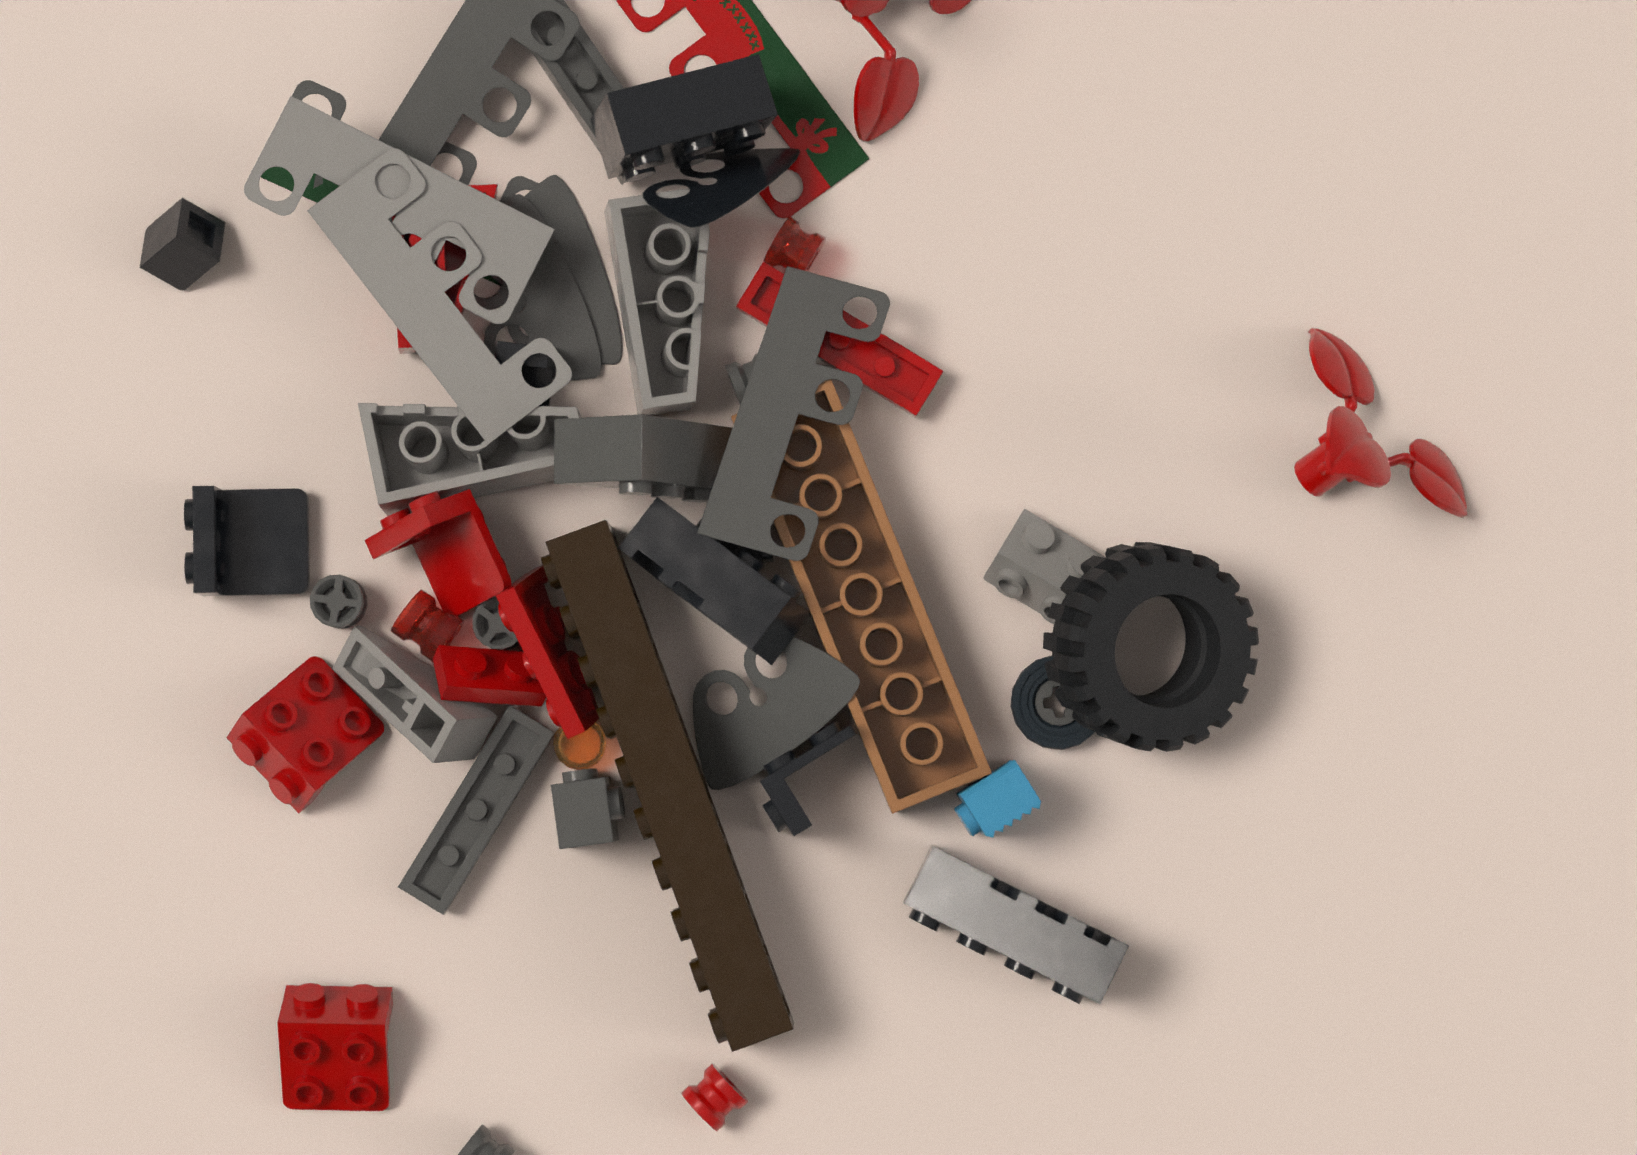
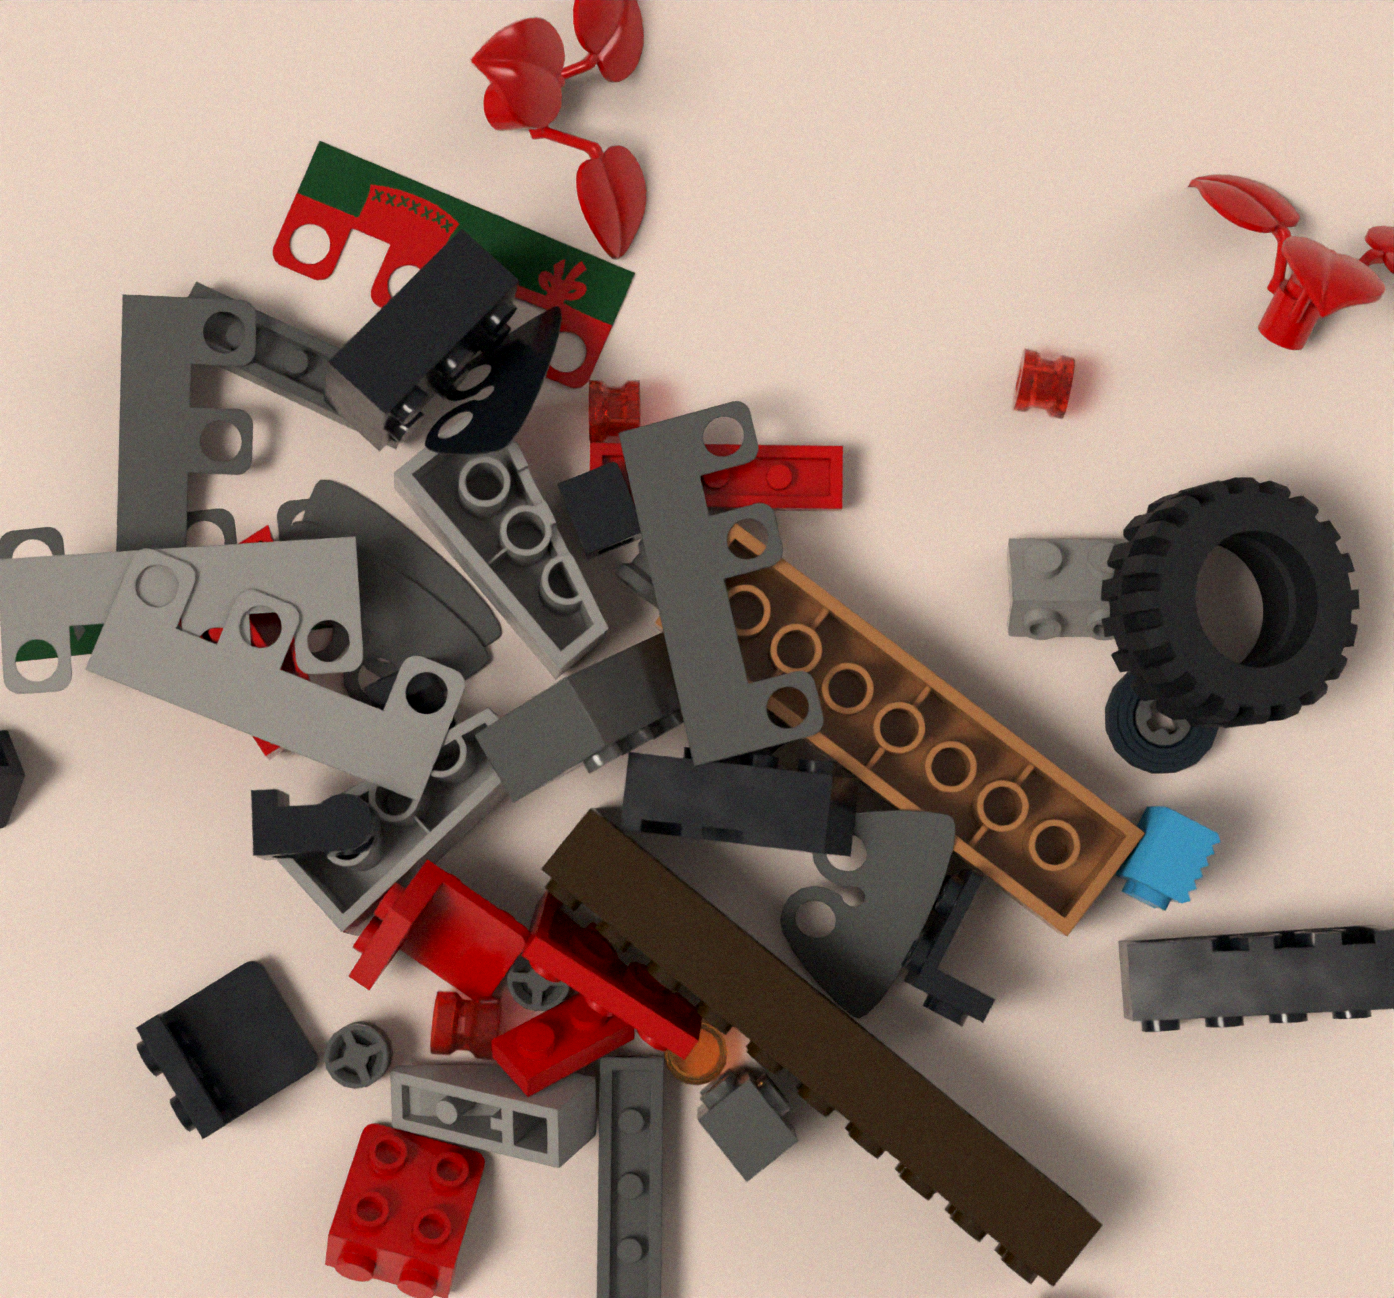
camera: 30 degrees left, 0 degrees up
(414, 426) = (334, 828): none -> black leg
(741, 314) = (601, 509): none -> black panel
(1115, 411) = (1043, 383): none -> clear red wheel

